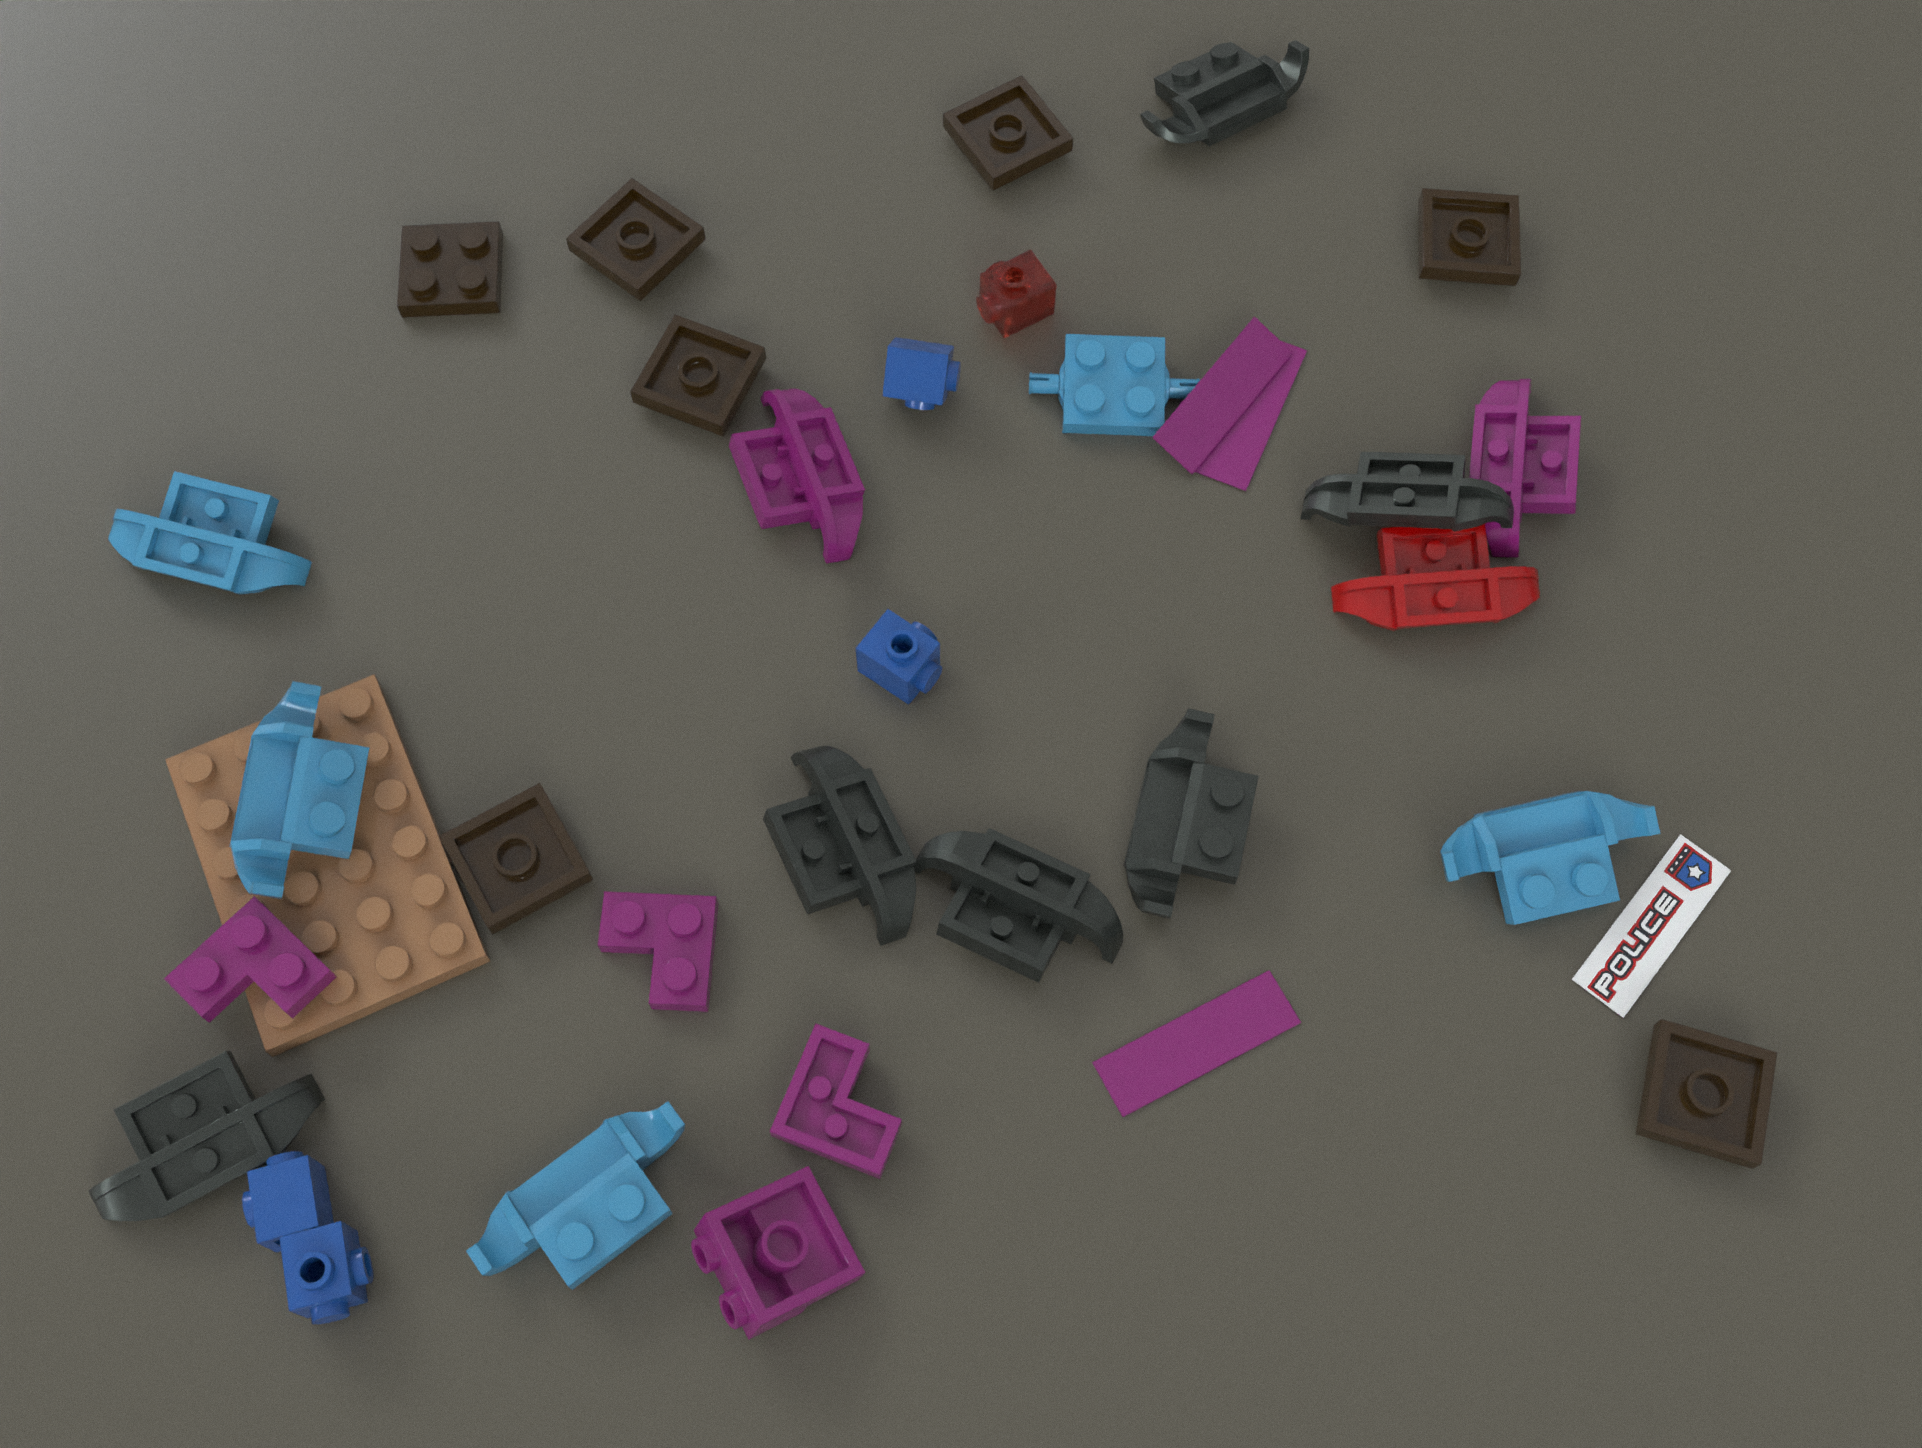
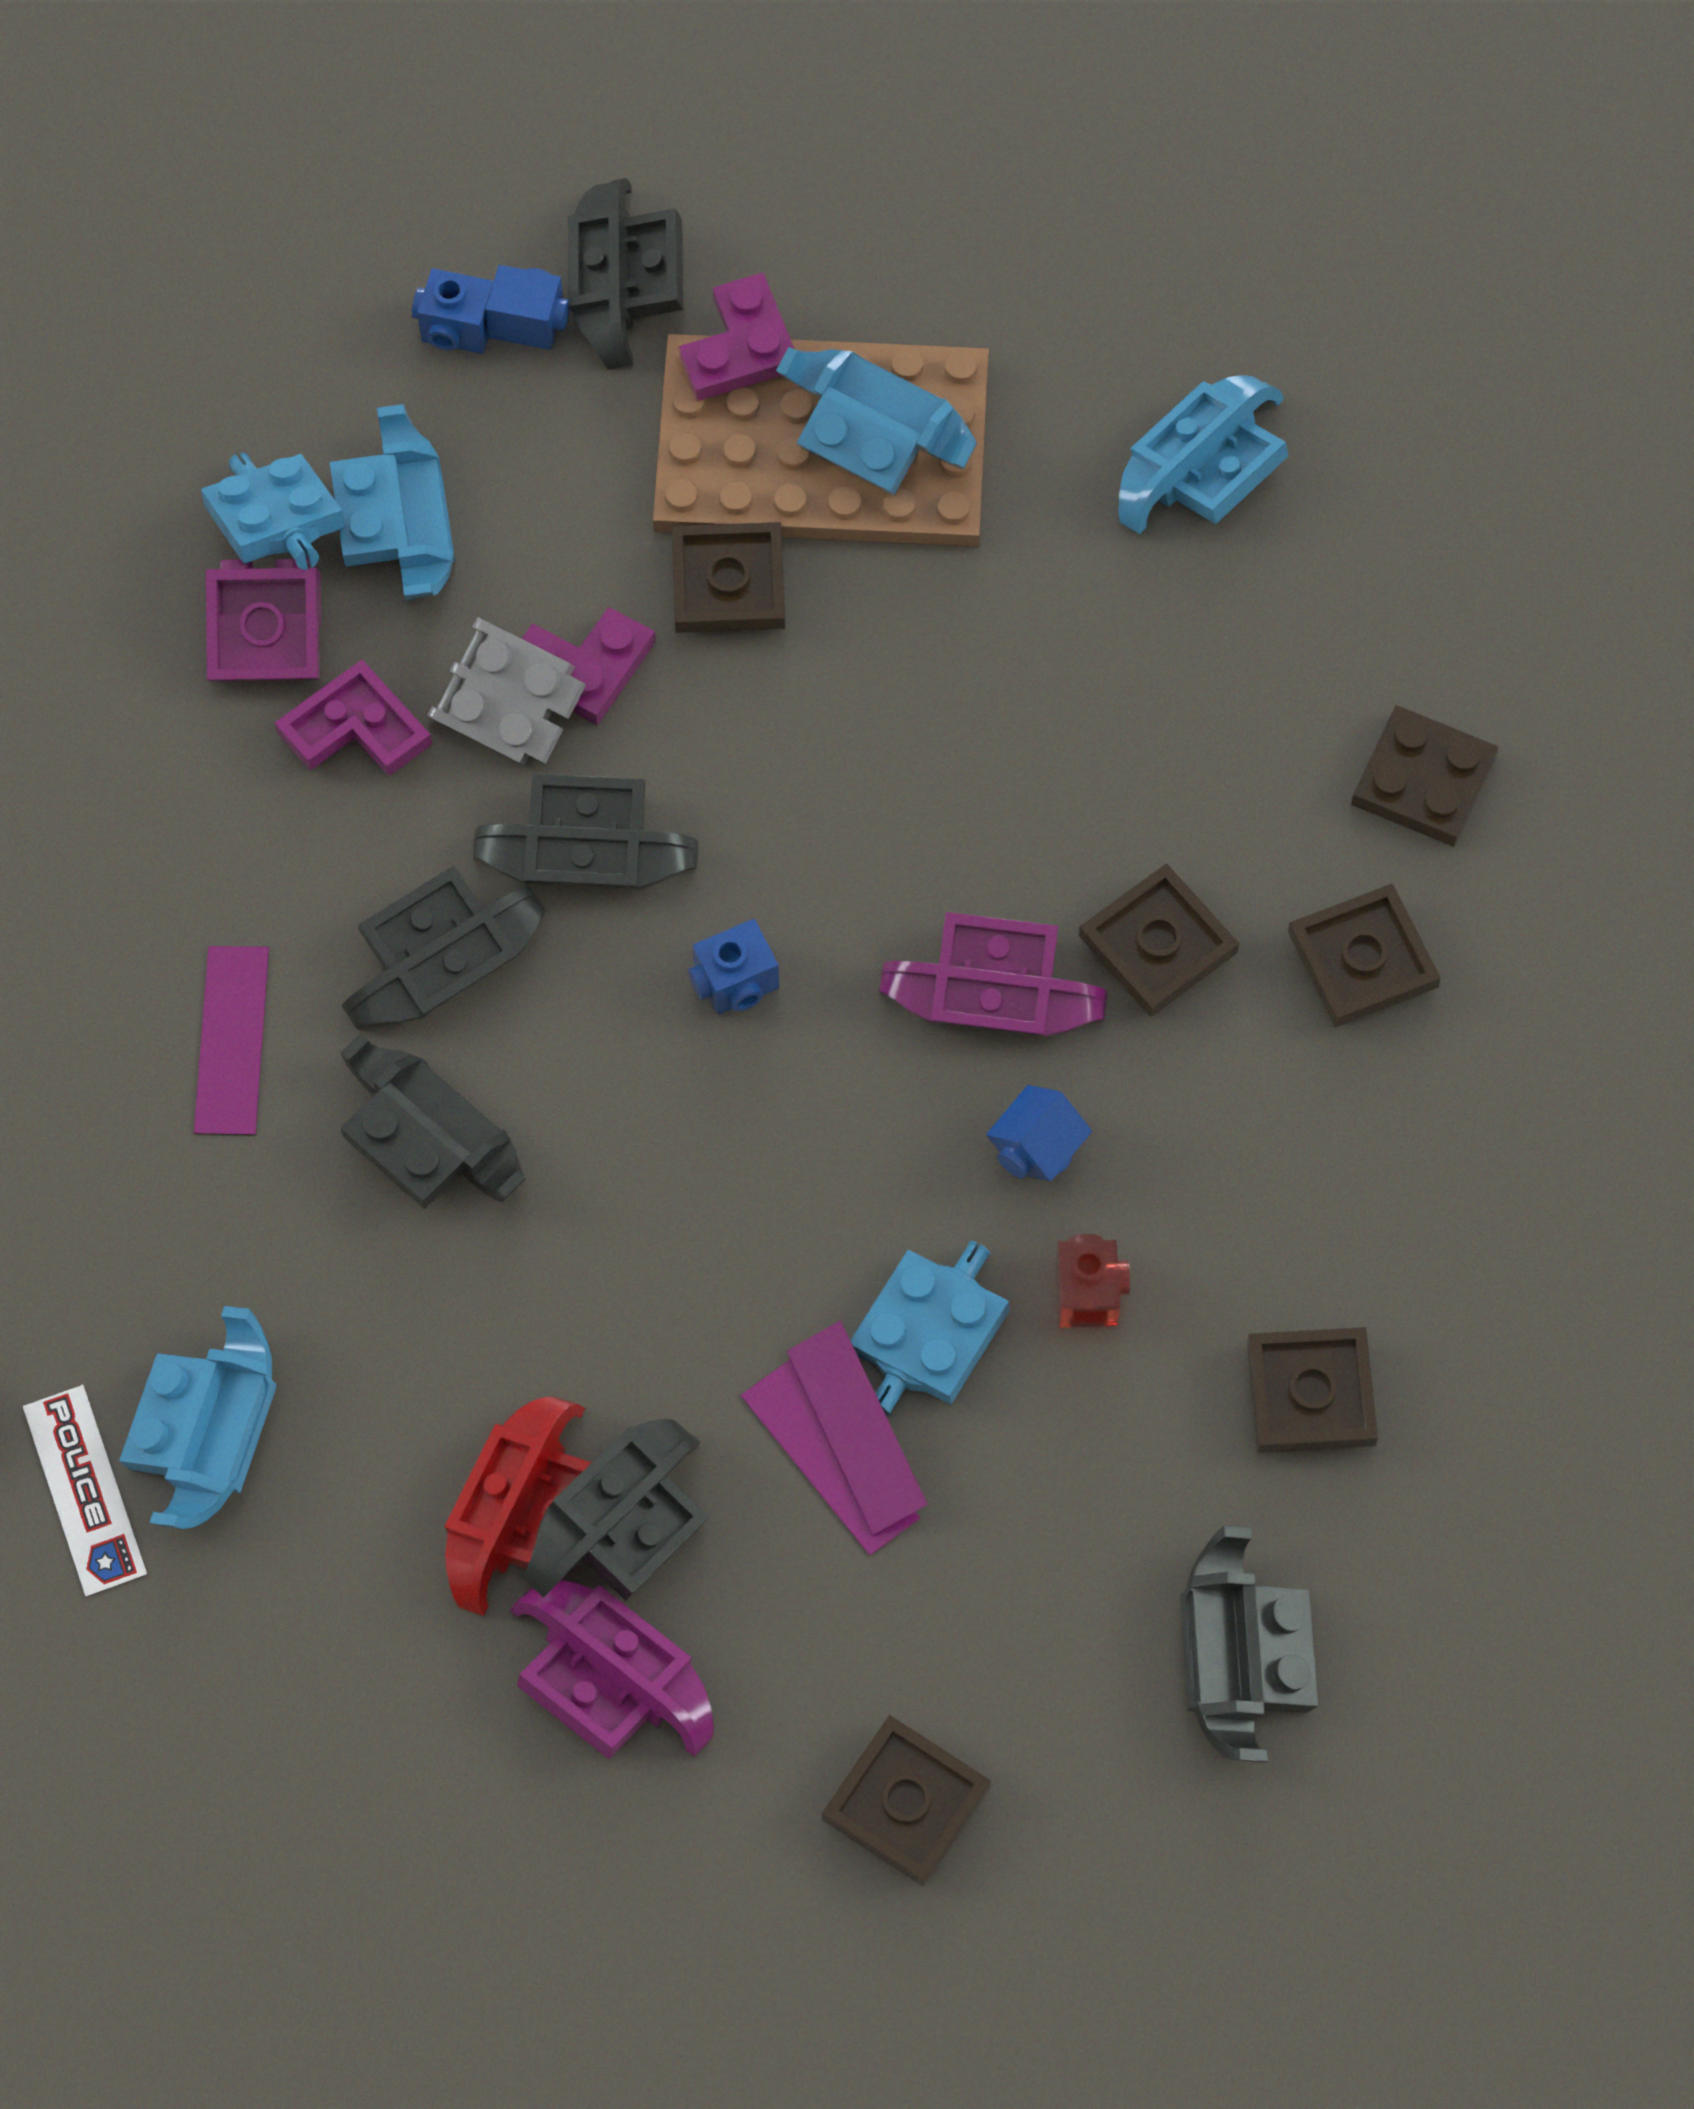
camera: 120 degrees right, 0 degrees up
(650, 1310) = (273, 509): none -> dark azure plate
(737, 978) = (508, 694): none -> light grey plate

